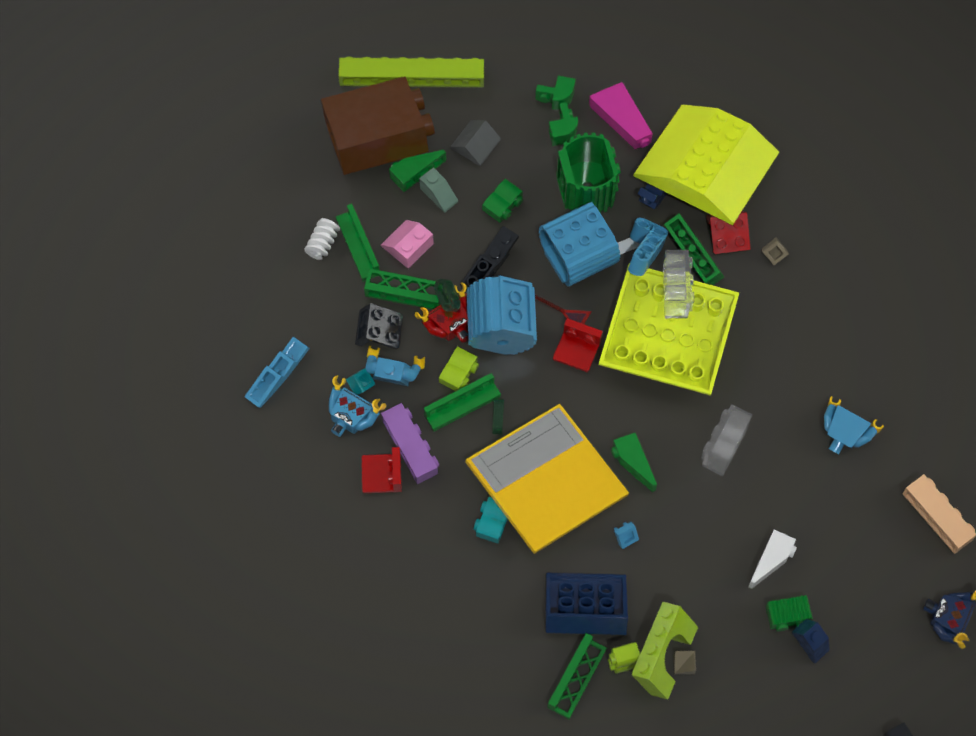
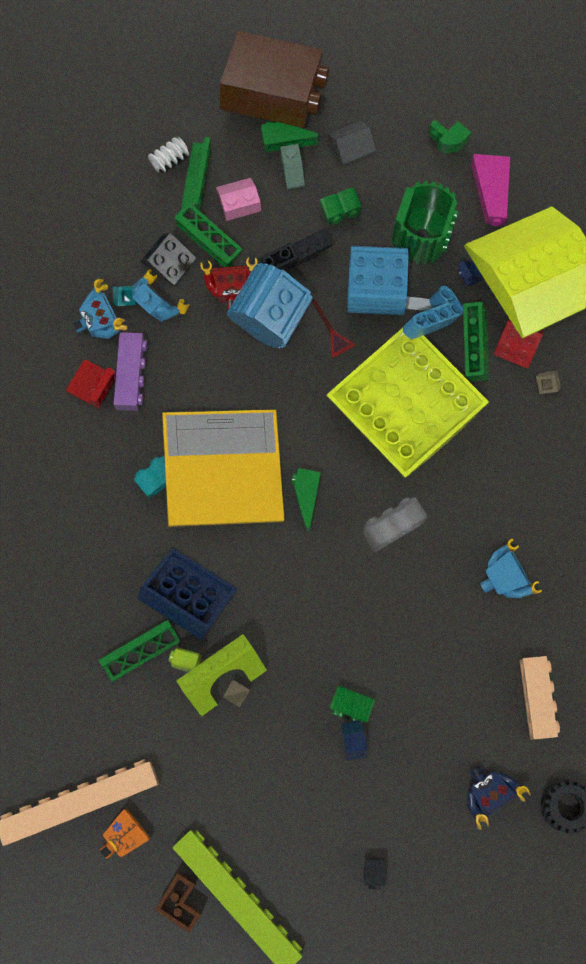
camera: 30 degrees right, 10 degrees up
(277, 372) = (61, 249): dark azure slope -> none
(418, 71) = (337, 50): lime brick -> none
(447, 295) = (236, 262): clear green beam -> none
(458, 369) = (209, 332): lime brick -> none
(461, 402) = (195, 361): green fence -> none
(498, 416) = (217, 391): clear green beam -> none
(565, 128) = (435, 171): green brick -> none
(578, 345) = (322, 369): red bracket -> none
(626, 535) = (258, 555): dark azure tile -> none
(677, 284) = (436, 364): clear brick -> none
(774, 556) = (371, 648): white slope -> none

